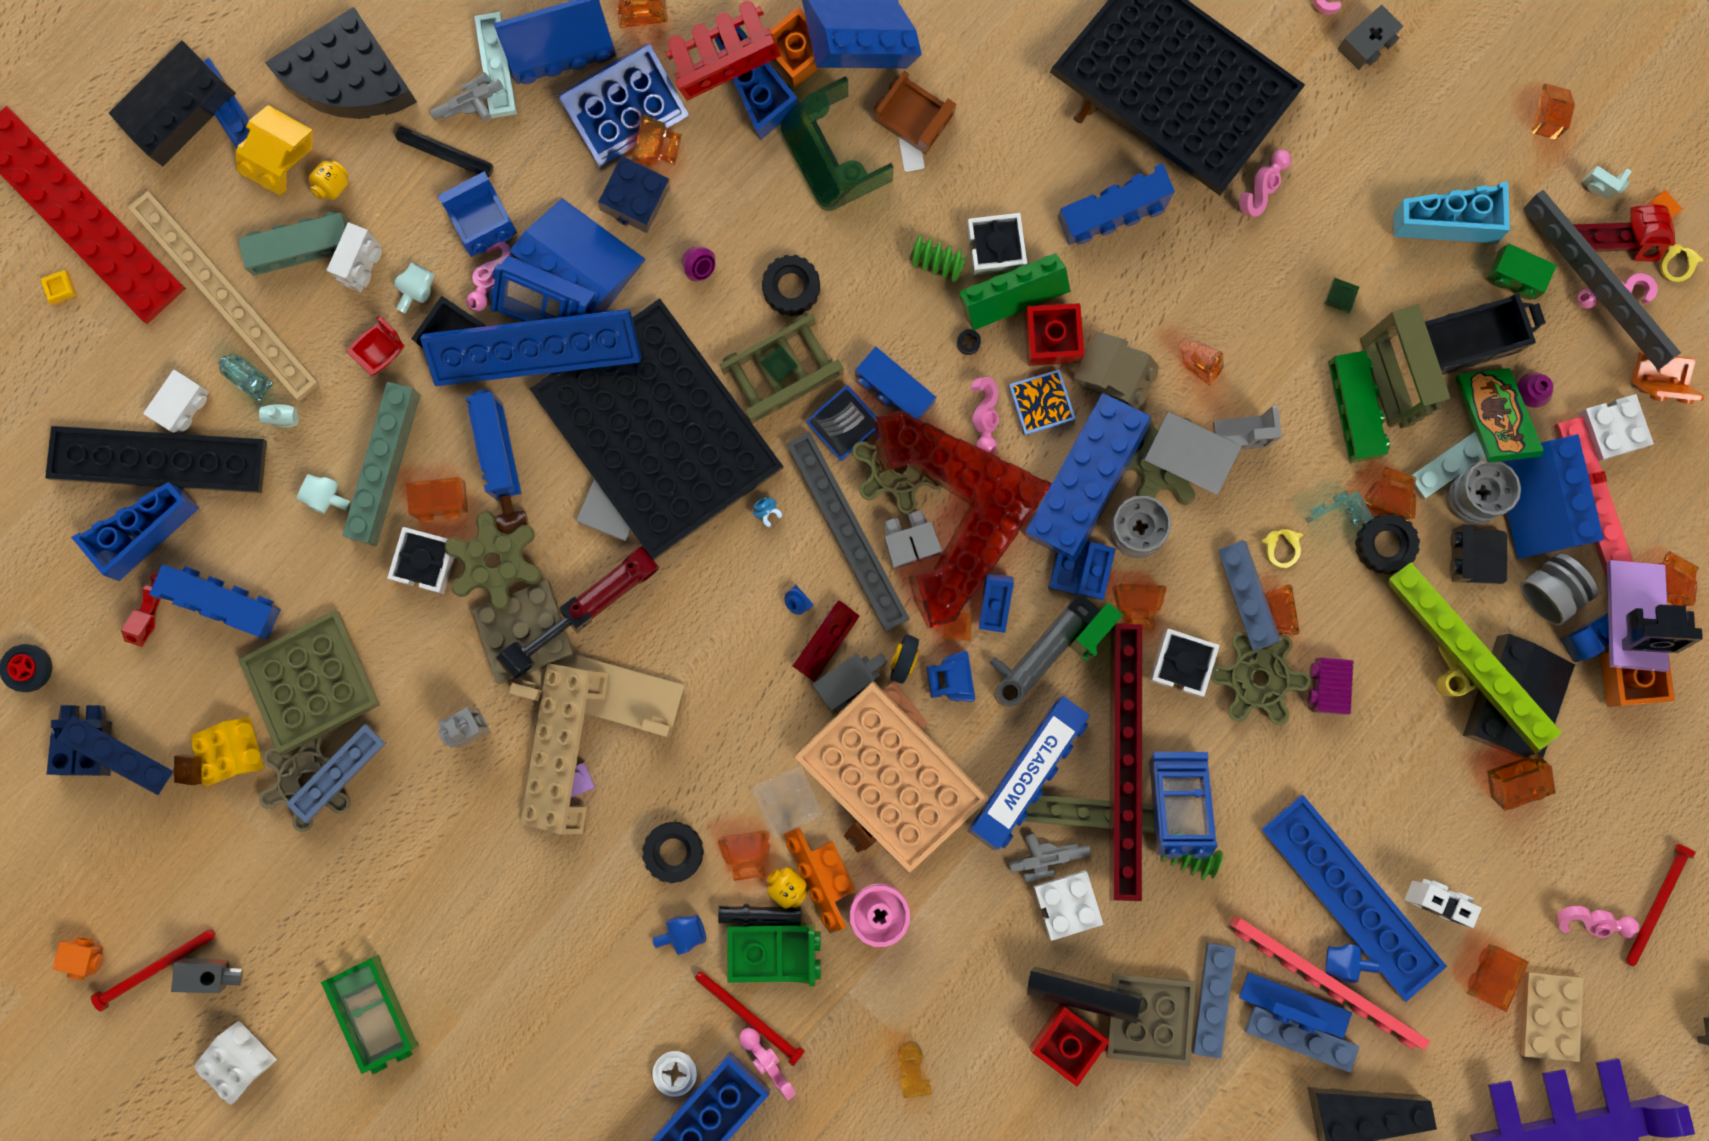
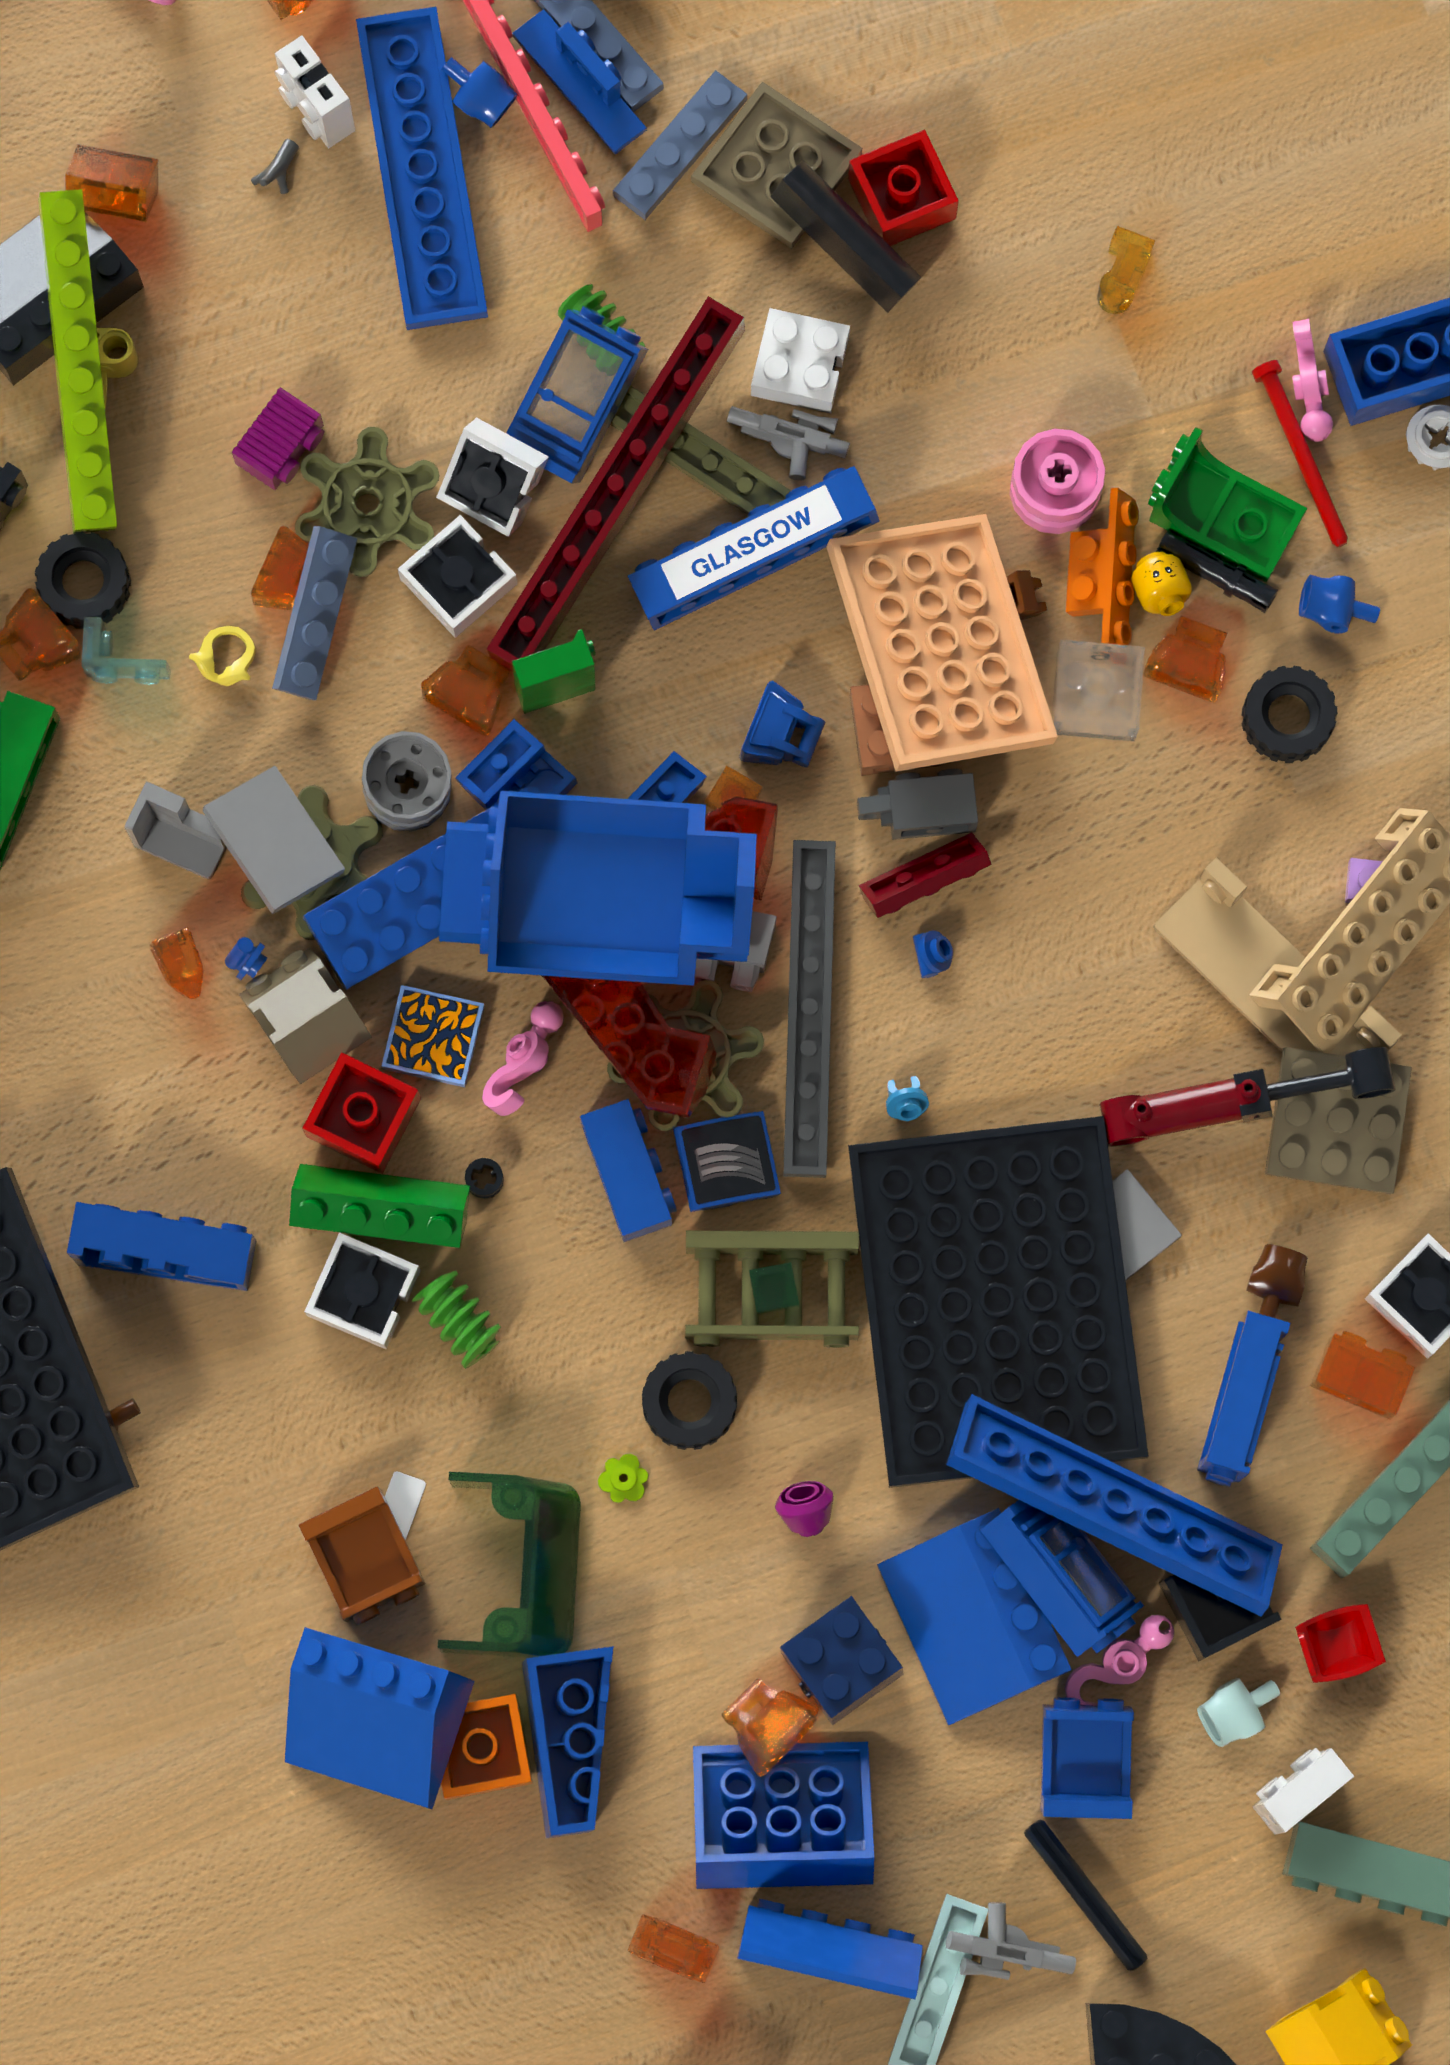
camera: 150 degrees left, 5 degrees down
(328, 180) = (1281, 1943): yellow head -> none
(511, 566) = (1322, 1264): olive plate -> none
(726, 64) = (619, 1787): red fence -> none
(803, 236) = (632, 1488): none -> lime plant
(904, 659) = (833, 787): black wheel -> none
(997, 517) = (598, 888): none -> blue panel
(1045, 650) = (627, 697): dark grey piece -> none
(1164, 385) = (245, 958): none -> blue plate
(1199, 729) = (492, 476): none -> piece
(1433, 850) = (278, 167): none -> dark grey bar

